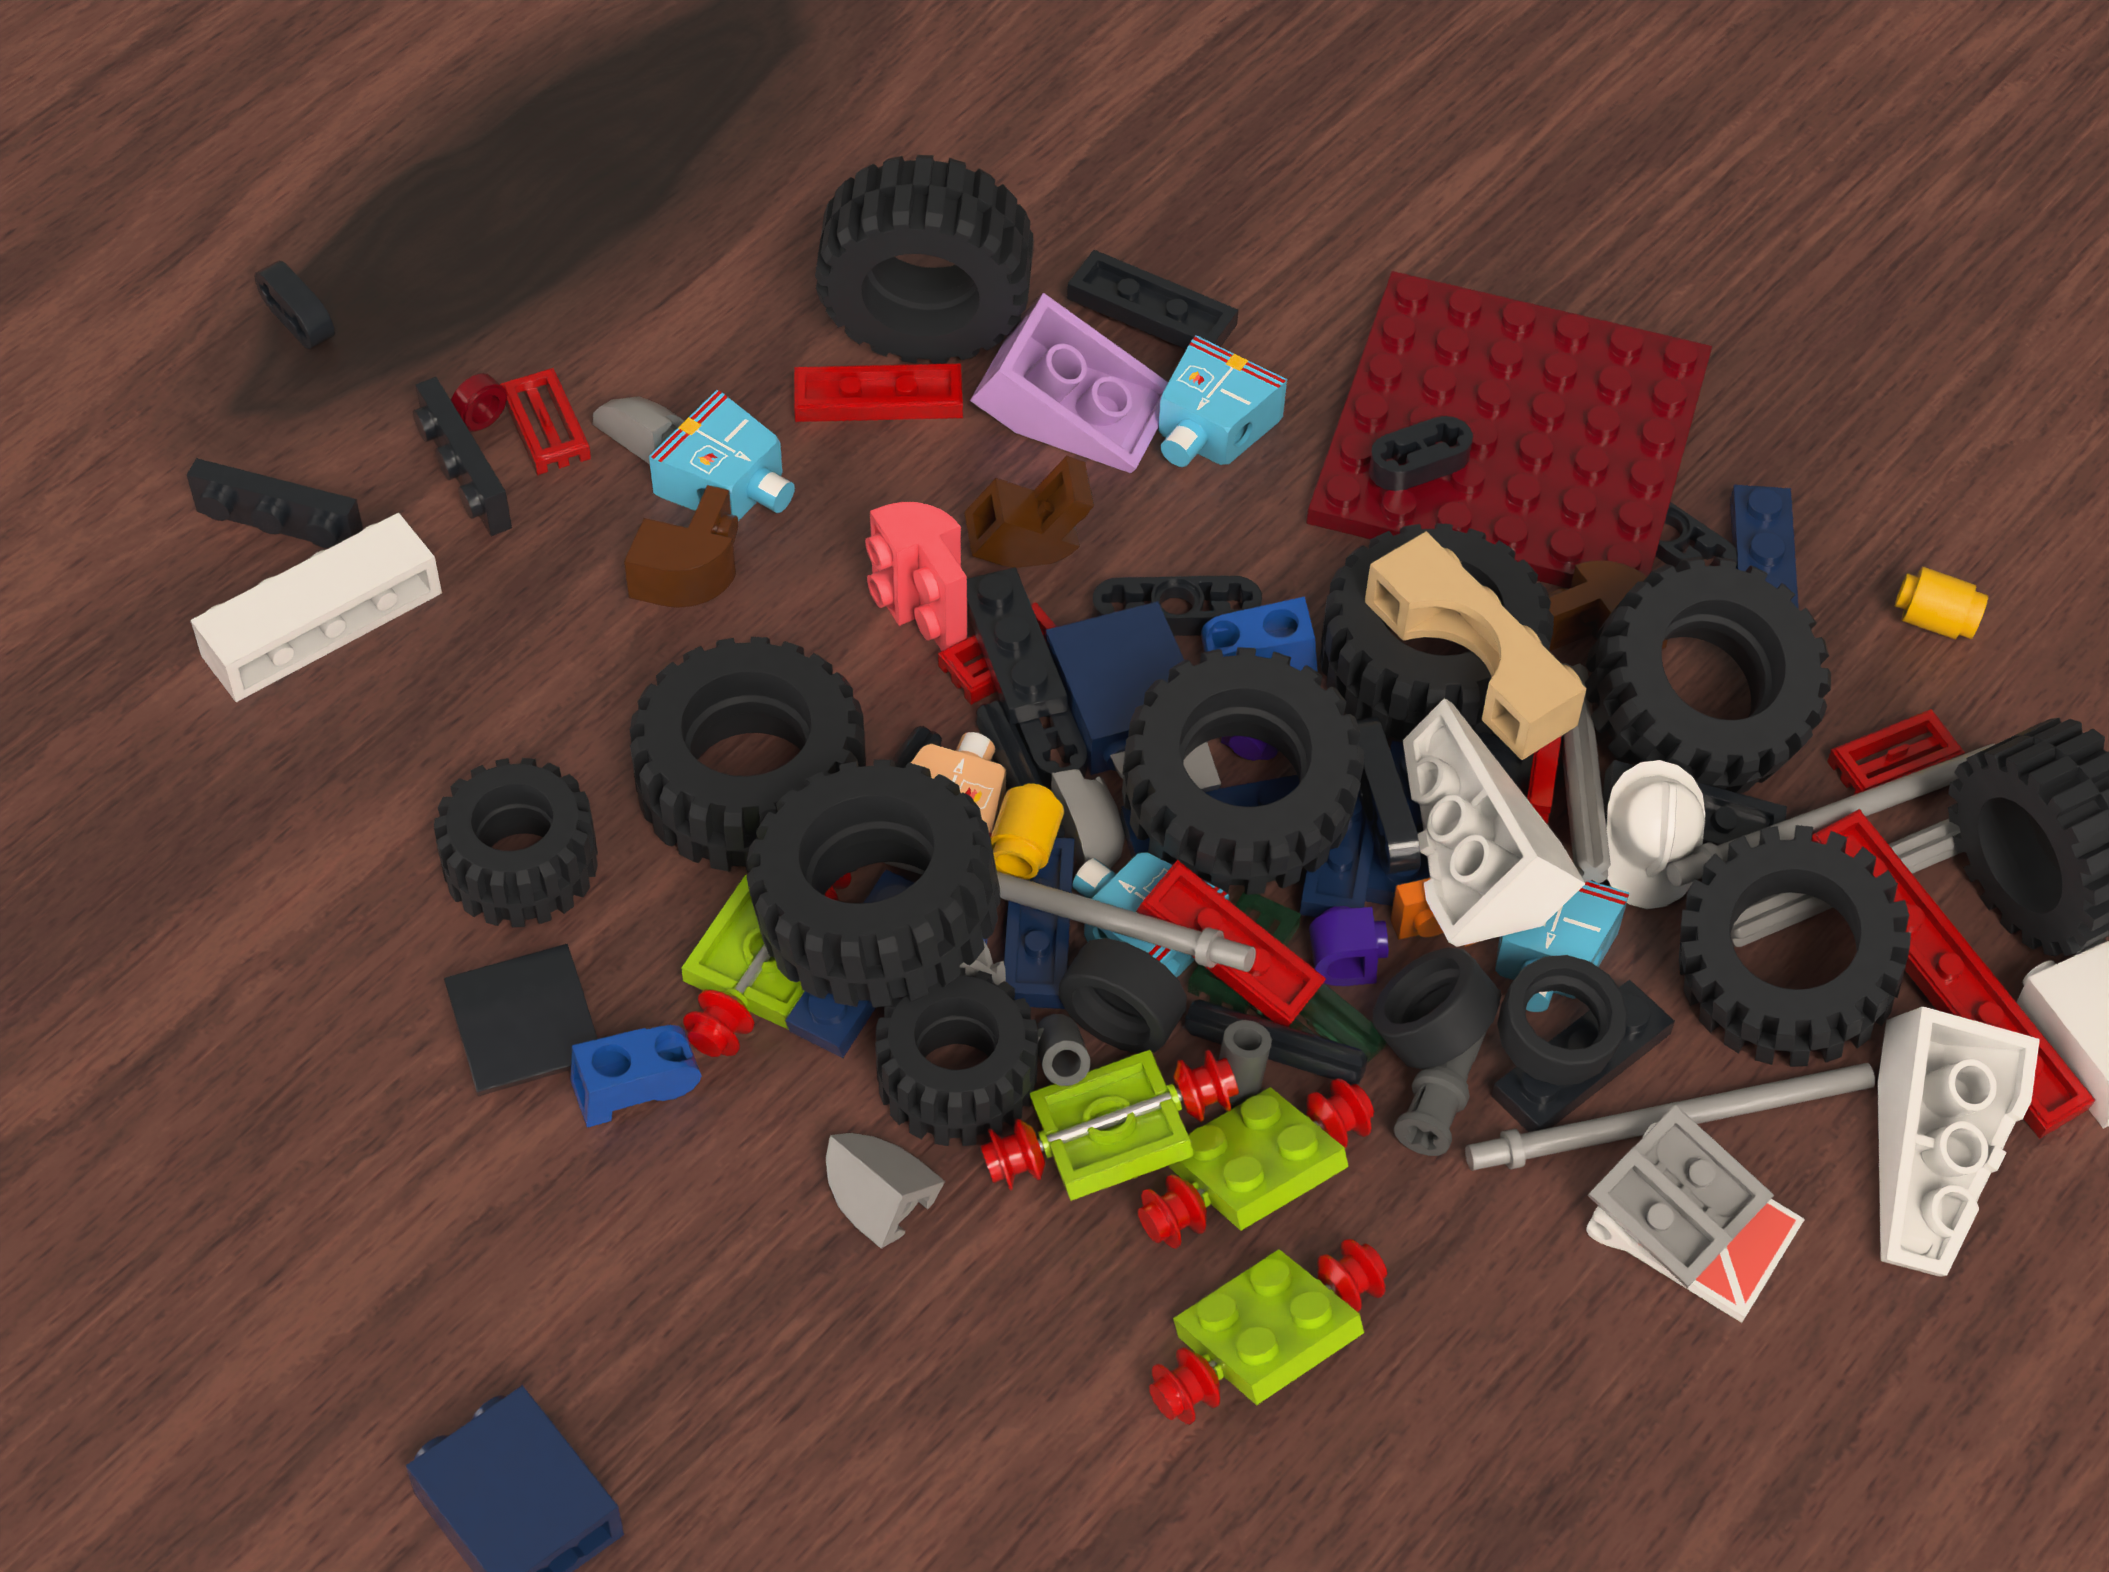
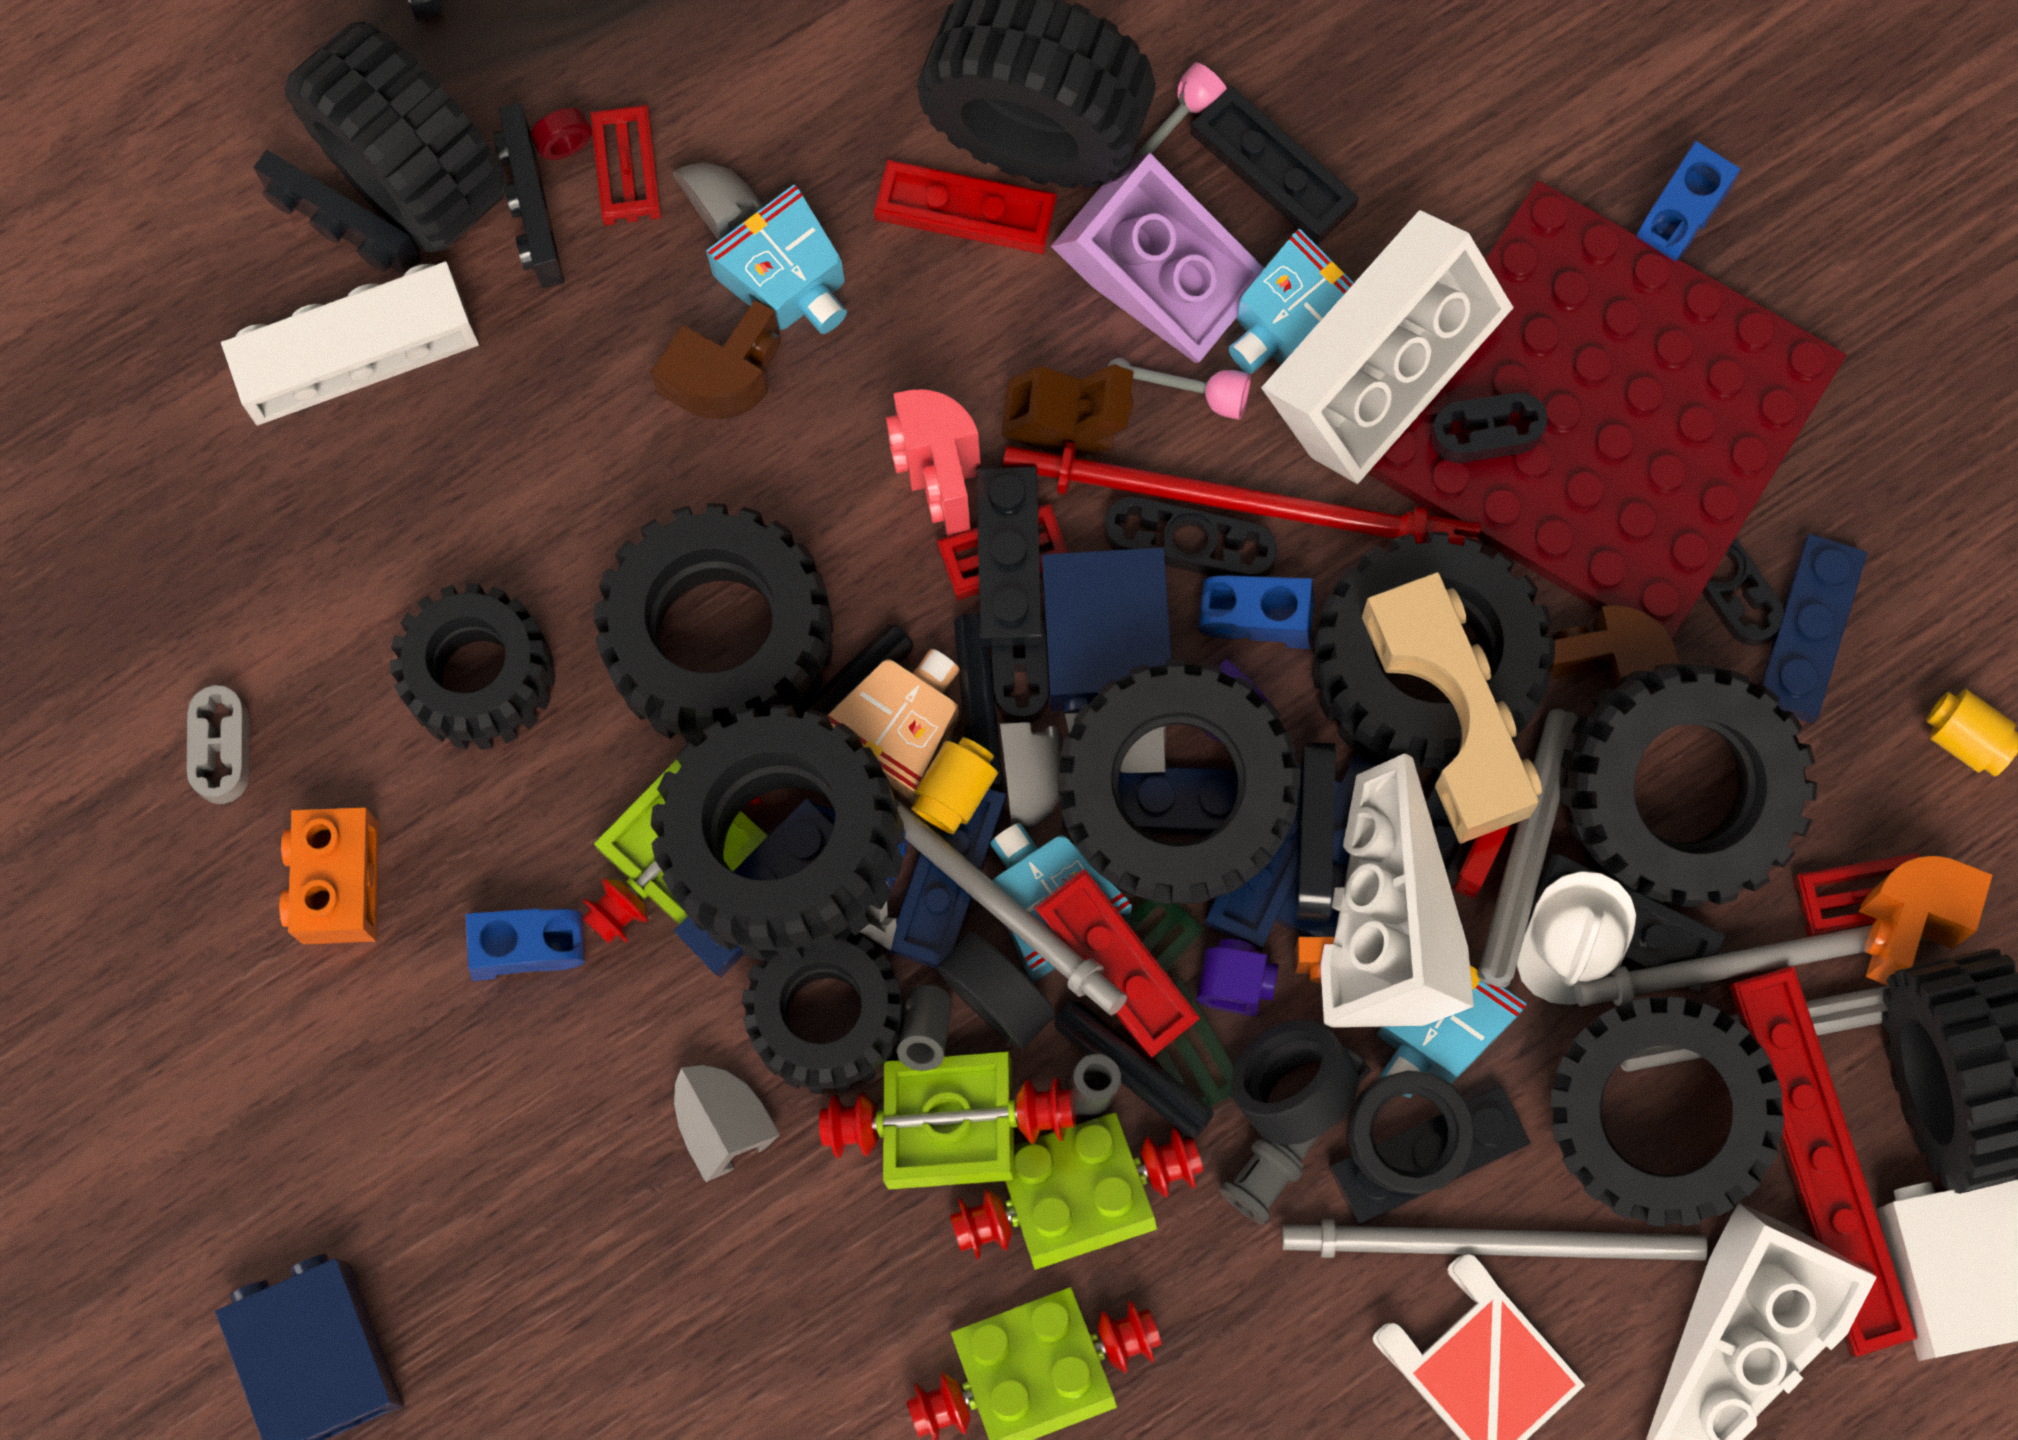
camera: 20 degrees right, 20 degrees up
(256, 976) = (232, 745): none -> light grey beam
(330, 403) = (396, 135): none -> black tyre
(420, 1057) = (331, 876): none -> orange brick
(520, 1018) = (436, 855): black slope -> none
(1046, 568) = (1241, 499): none -> red bar
(1063, 261) = (1195, 93): none -> bright pink hinge
(1167, 483) = (1224, 391): none -> bright pink hinge
(1309, 401) = (1388, 346): none -> white brick
(1530, 259) = (1688, 201): none -> blue leg
(1680, 1195) = (1465, 1342): light grey slope -> none
(1947, 730) = (1917, 900): none -> orange brick

